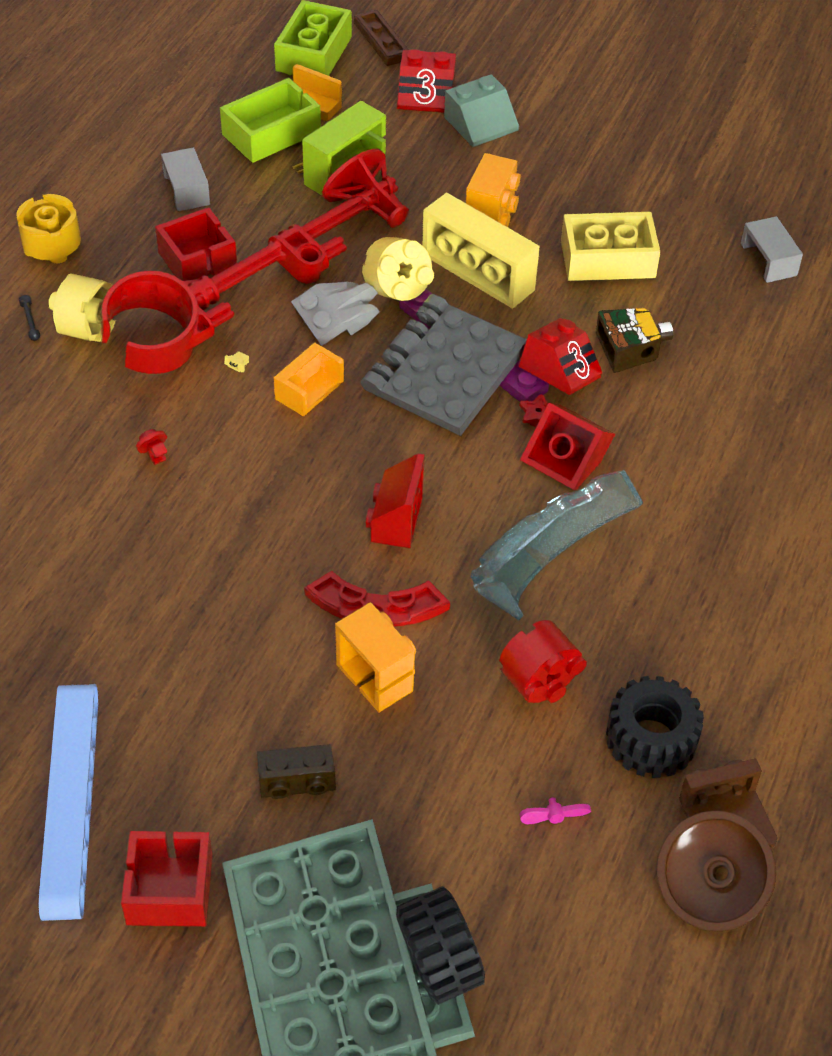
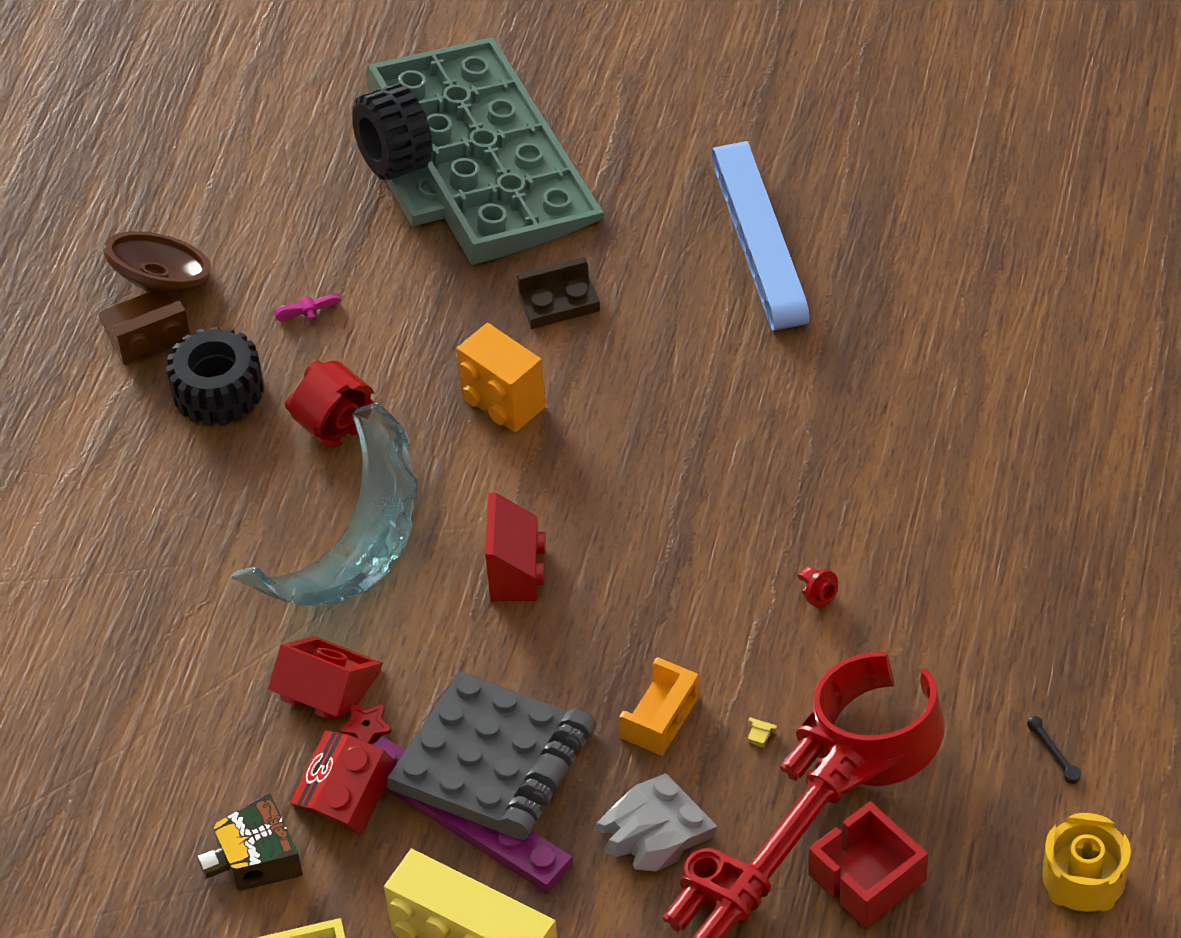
camera: 175 degrees right, 0 degrees up
(79, 307) = (976, 734): light yellow brick -> none
(168, 888) = (643, 176): red piece -> none
(398, 268) = (577, 859): light yellow brick -> none
(401, 606) = (517, 462): red tile -> none

